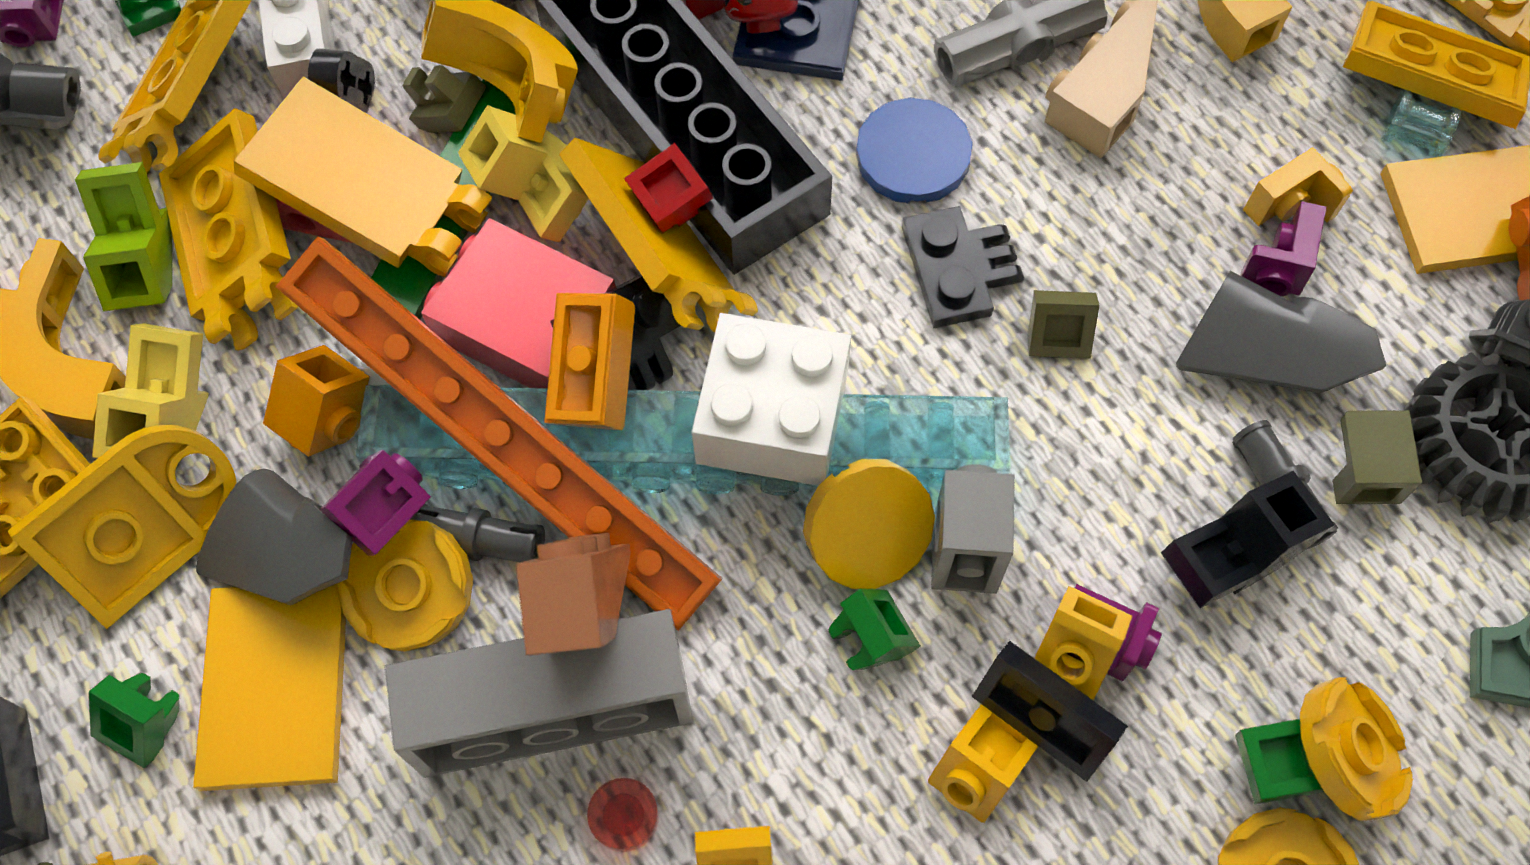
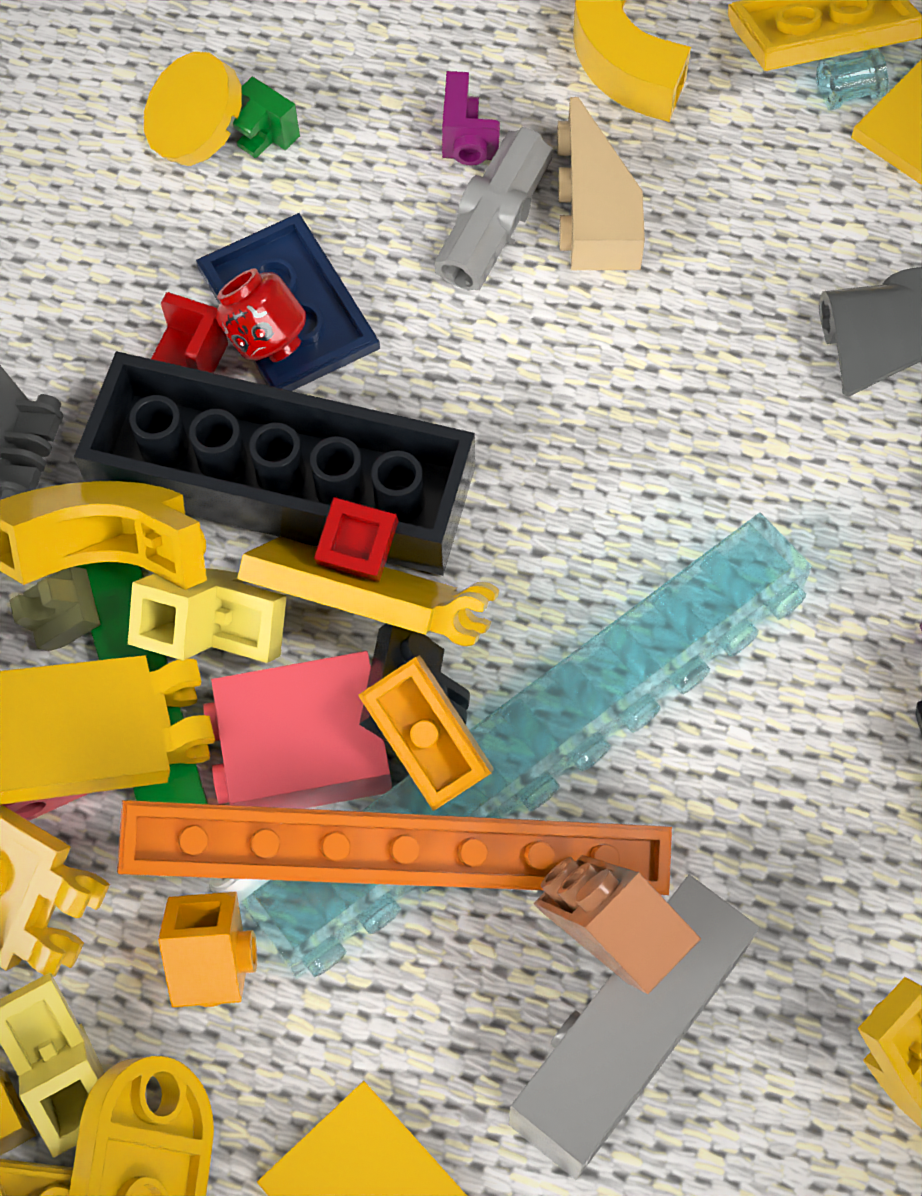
camera: 40 degrees left, 0 degrees up
(274, 542) = (289, 1094): dark grey panel -> none
(377, 500) = (356, 985): magenta bracket -> none
(408, 590) = (422, 1039): yellow tile -> none
(486, 536) = (438, 951): dark grey pin -> none
(623, 814) = (759, 1072): clear red tile -> none
(771, 399) = (603, 648): white brick -> none
(869, 524) = (745, 692): yellow tile -> none
(879, 626) = (817, 764): green tile -> none
(913, 150) = (493, 366): tile -> none
(958, 265) = (611, 436): hinge -> none
(973, 529) = (830, 634): light grey brick -> none
(1062, 324) = (736, 423): olive tile -> none
(1293, 254) = (852, 244): magenta bracket -> none
(1302, 179) = (815, 181): yellow bracket -> none

